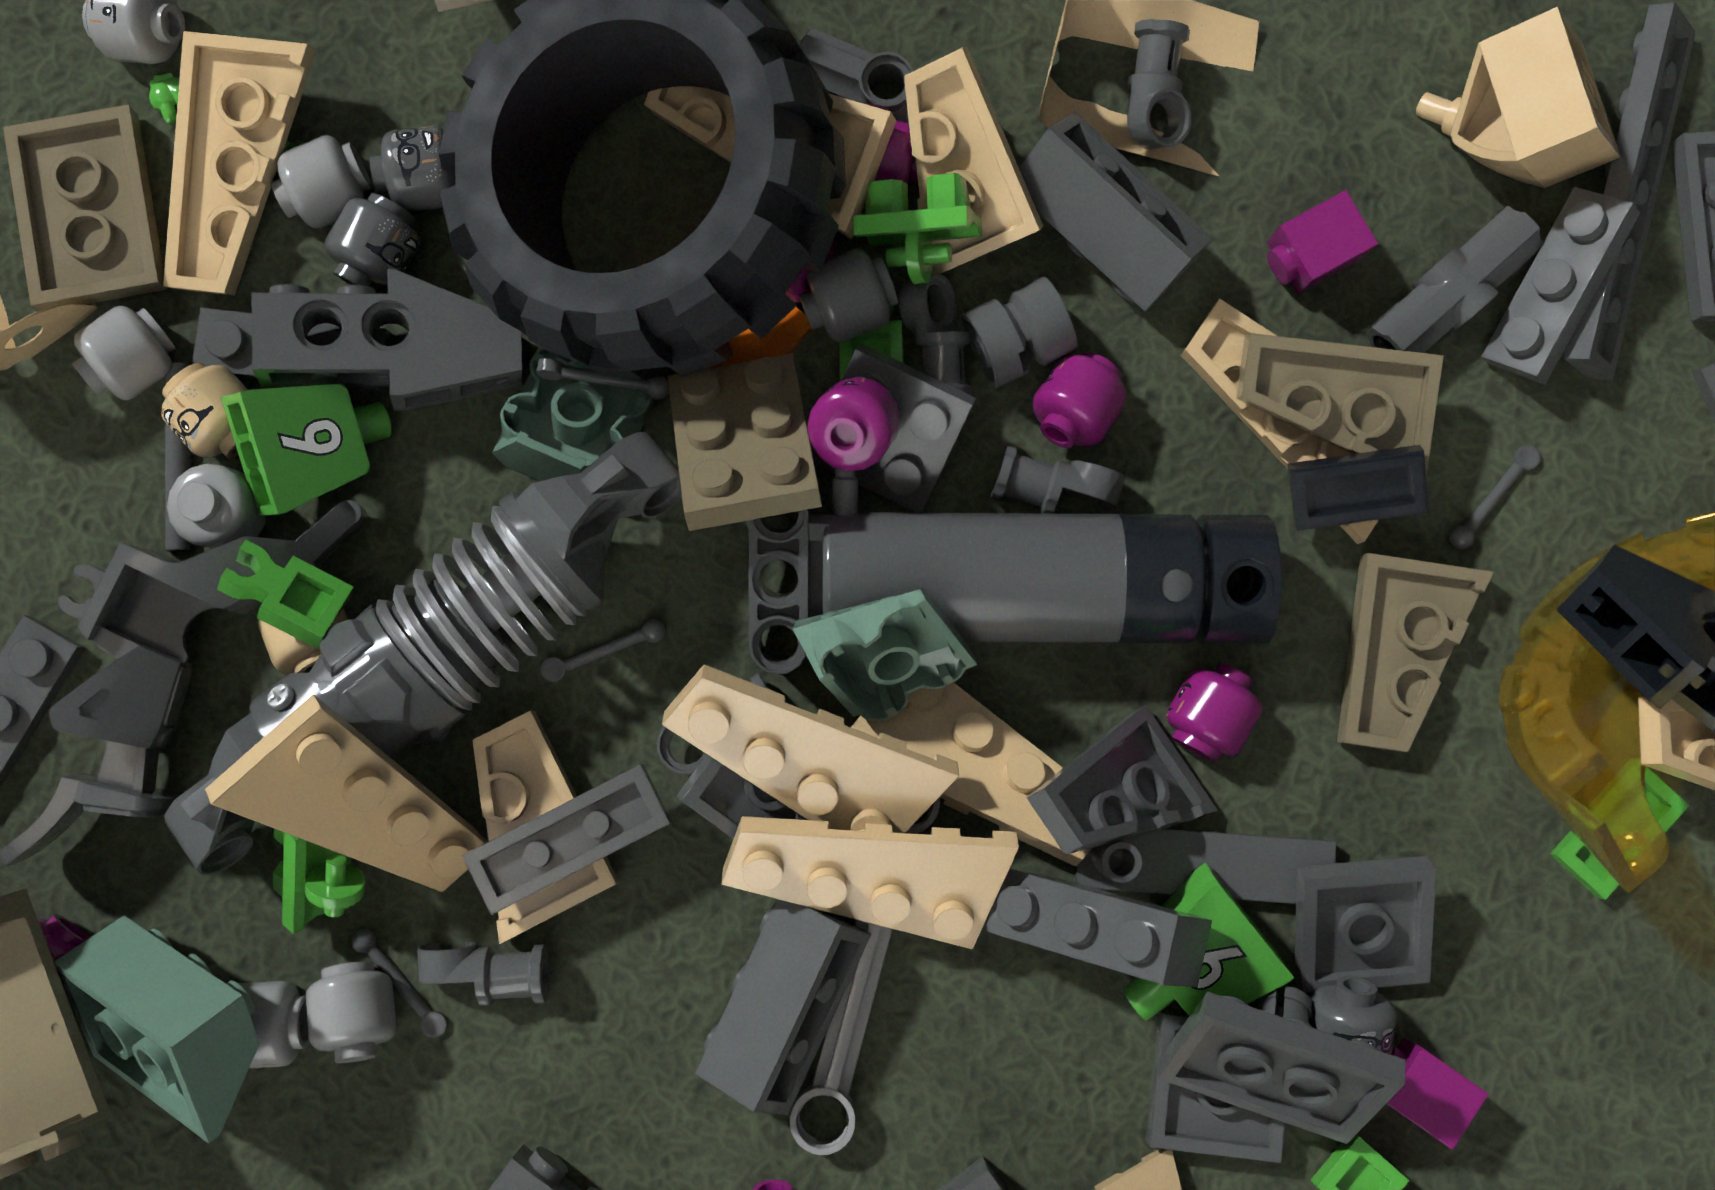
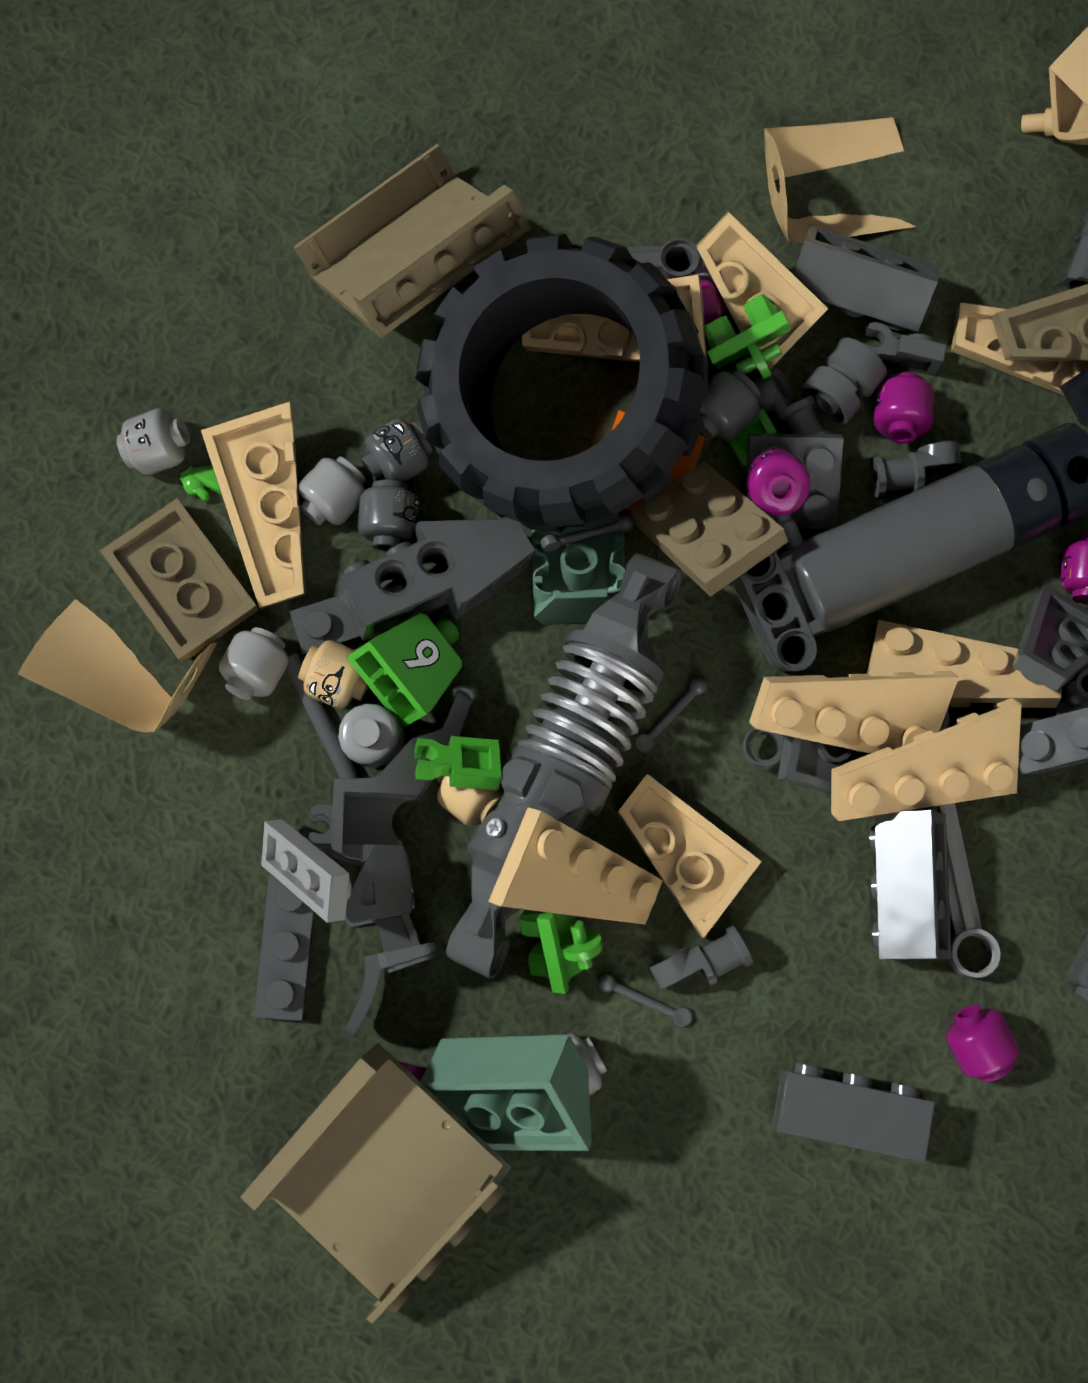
camera: 25 degrees left, 5 degrees down
(43, 641) = (305, 870): none -> light grey plate
(351, 1011) = (626, 1030): light grey head -> none
(567, 839) = (719, 842): dark grey plate -> none
(883, 652) = (871, 618): sand green slope -> none
(1127, 335) = (909, 352): none -> dark grey plate
(1158, 82) = (850, 184): dark grey connector -> none
(1319, 243) = (1006, 239): magenta brick -> none

